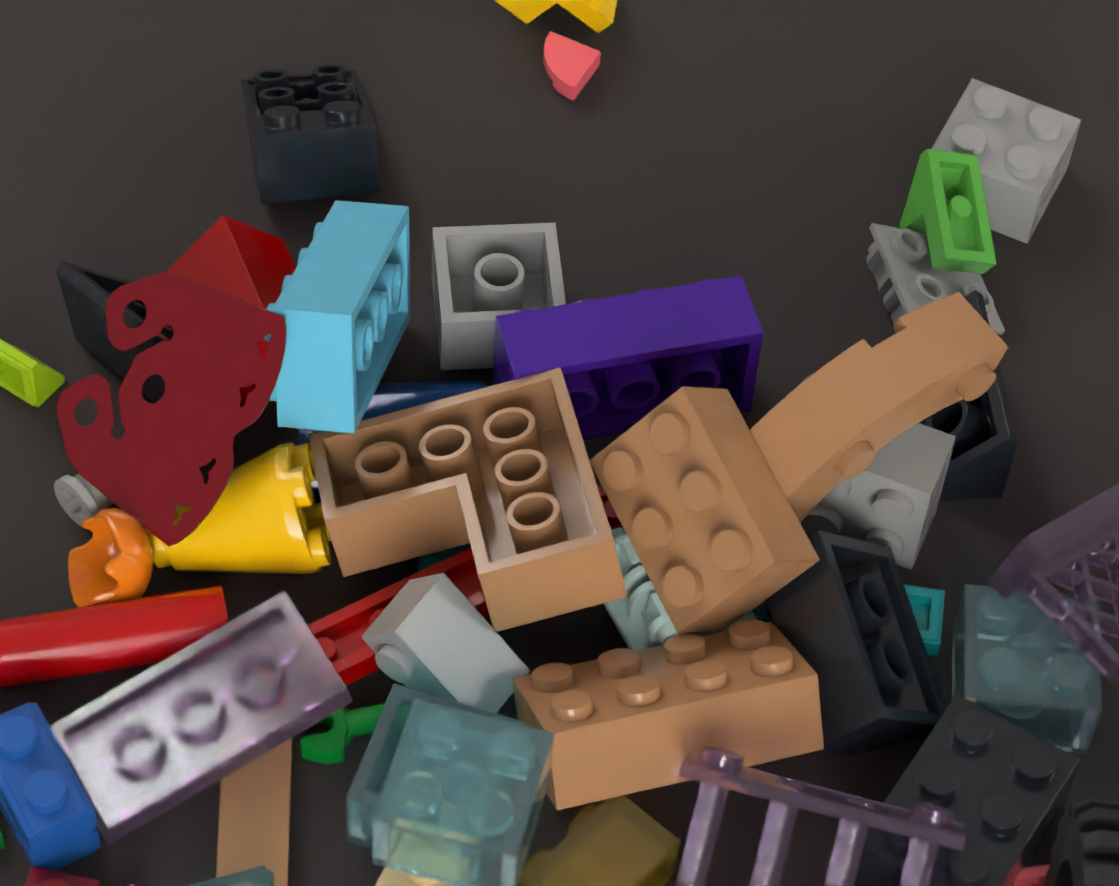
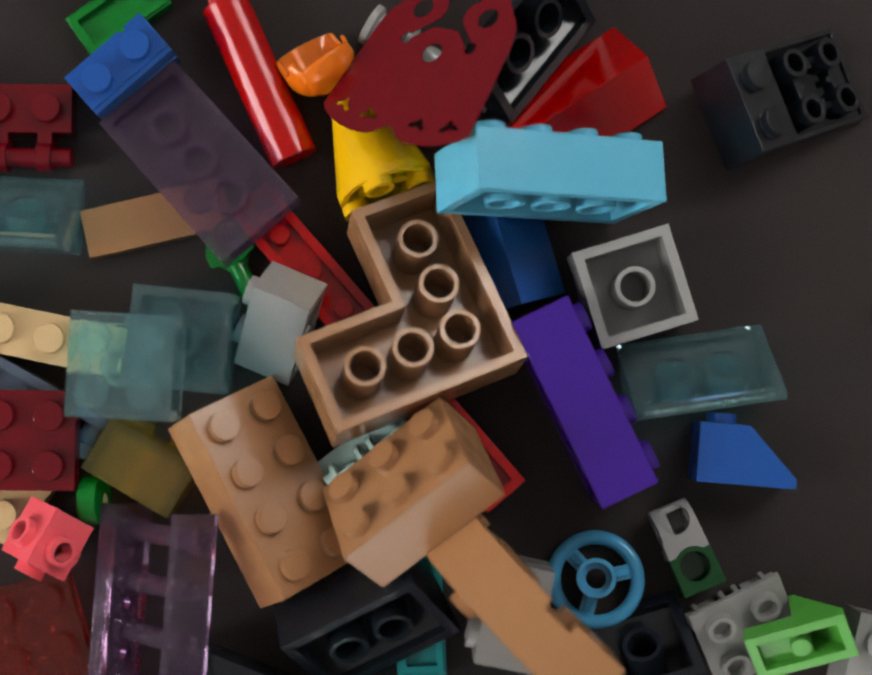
camera: 80 degrees right, 35 degrees up
(619, 237) = (699, 372): none -> clear light blue slope
(723, 239) = (734, 455): none -> blue slope
(826, 314) = (685, 548): none -> leg

